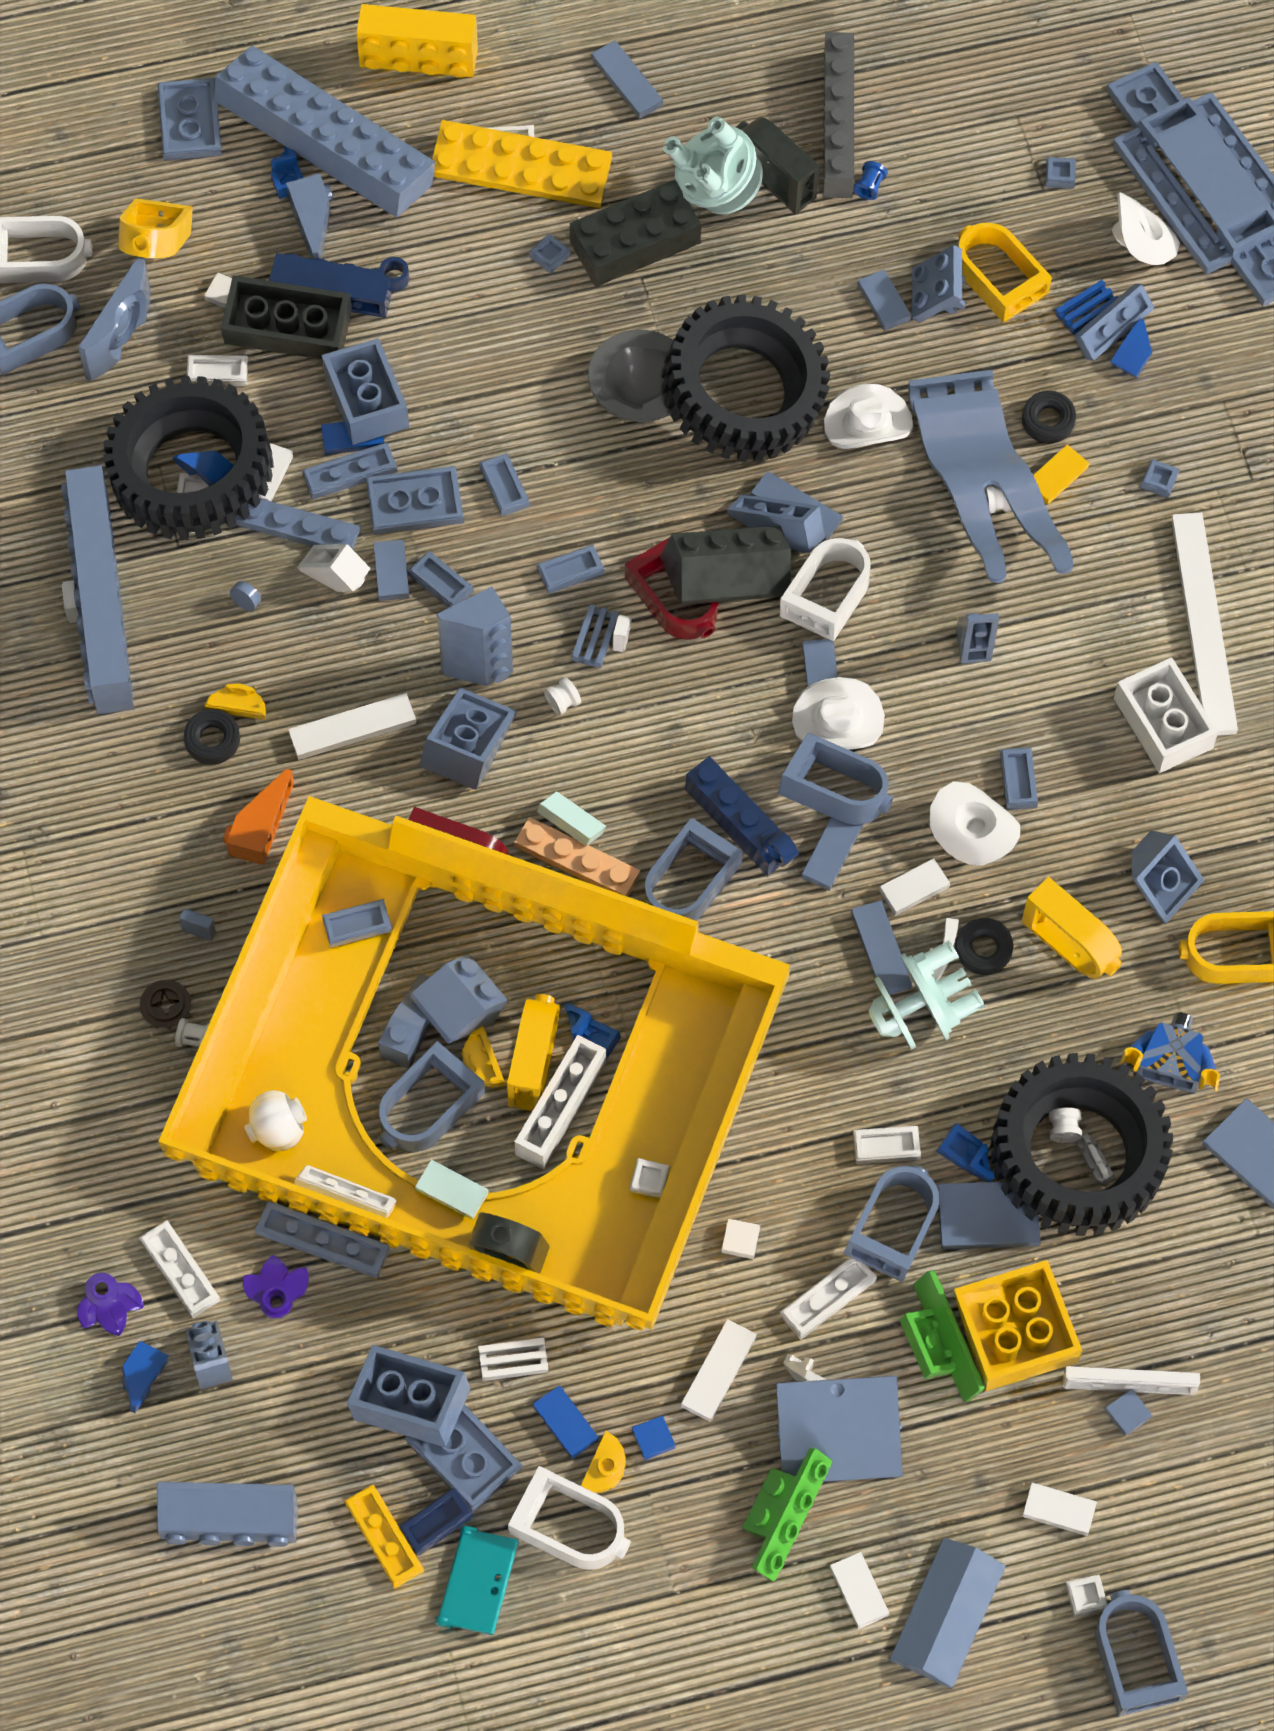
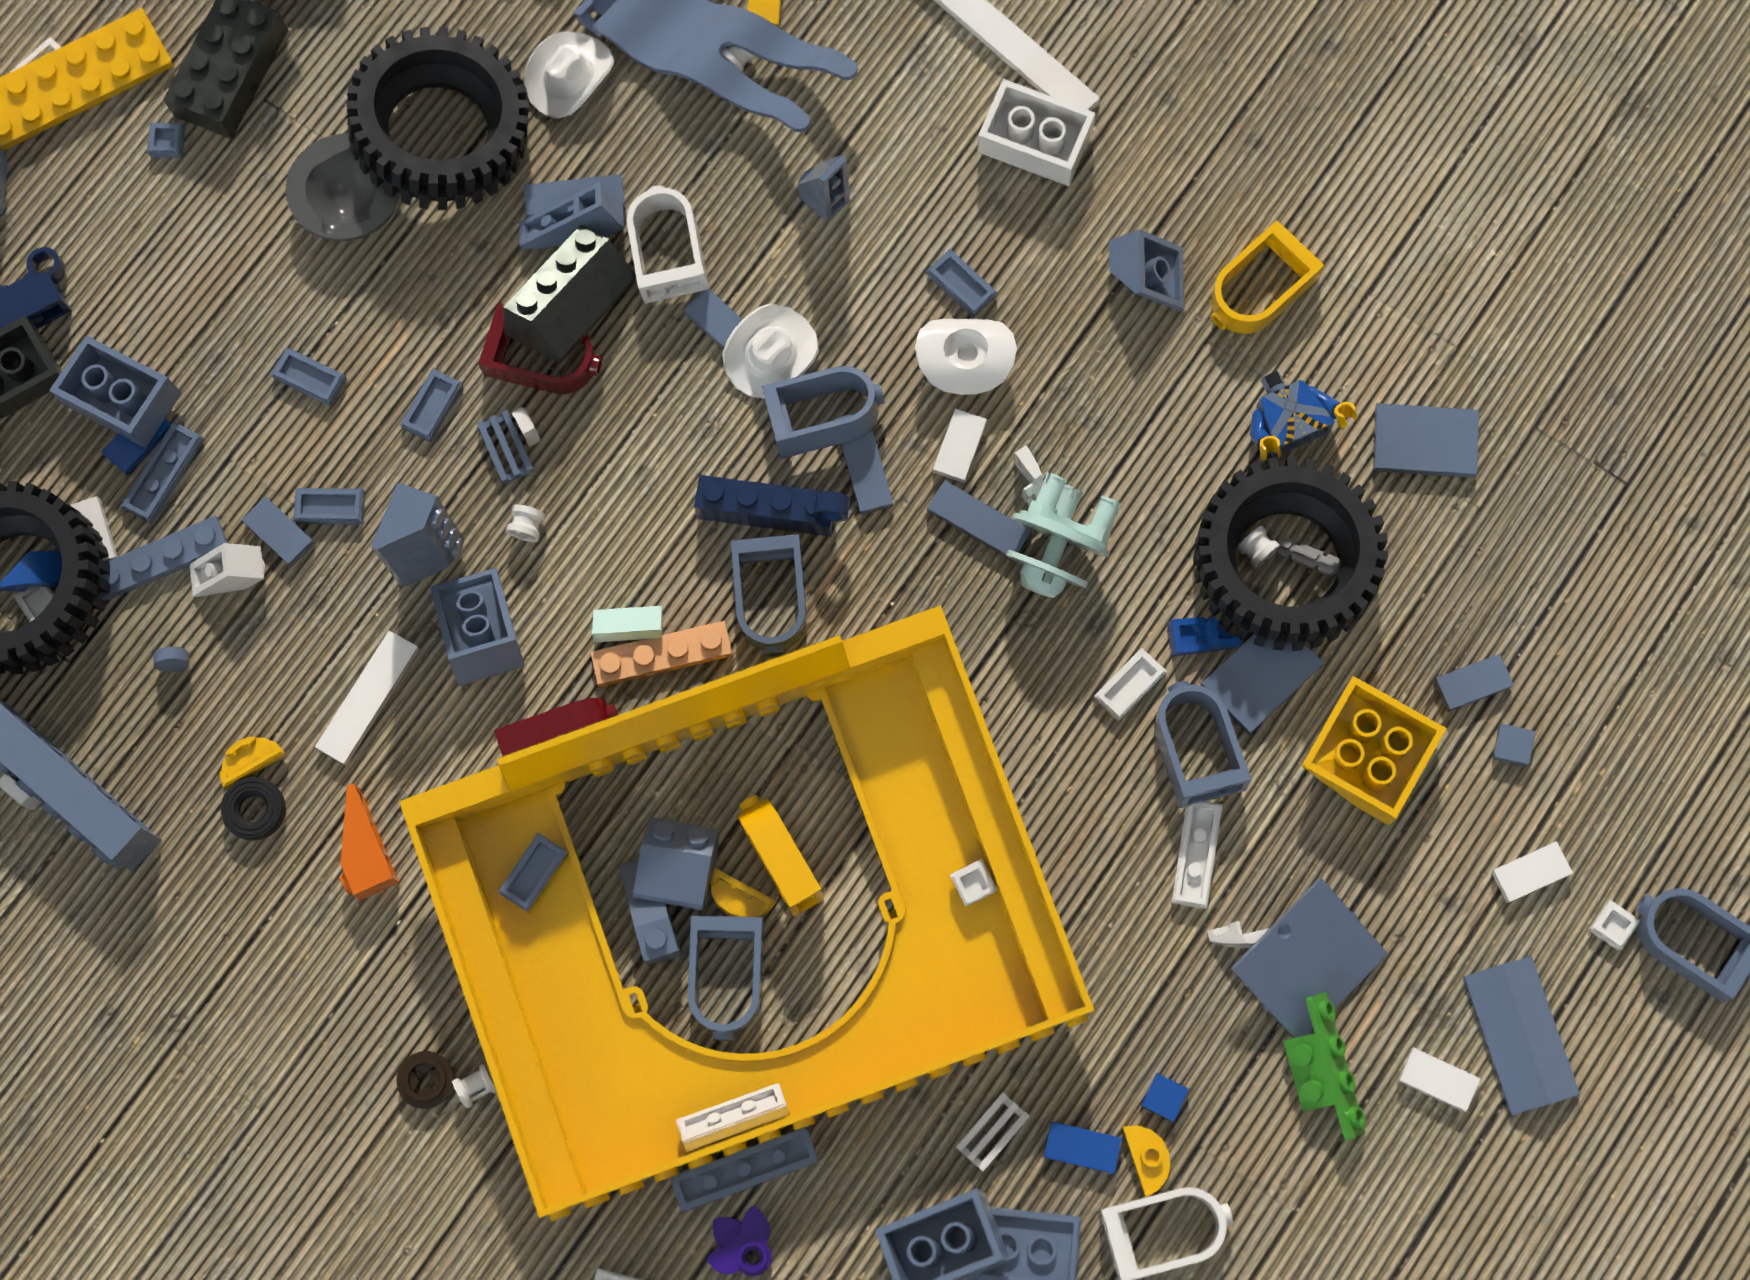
camera: 35 degrees left, 10 degrees up
(197, 924) = (391, 986): sand blue tile -> none
(275, 1120) = (618, 1105): white plant -> none
(414, 500) = (243, 453): sand blue tile -> none
(452, 1189) = (818, 1034): light aqua tile -> none
(504, 1238) = (912, 1054): pearl dark grey window -> none
(560, 1102) = (839, 879): white brick -> none
(590, 1029) = (808, 797): blue slope -> none
(718, 1370) = (1166, 994): white tile -> none
(741, 1239) = (1085, 866): white tile -> none
(938, 1339) = (1318, 814): bright green bracket -> none
(992, 929) = (1061, 429): black tyre -> none
(1071, 930) = (1125, 379): yellow window -> none
(1126, 1379) = (1495, 717): white tile -> none
(1138, 1346) = (1473, 682): none -> sand blue tile

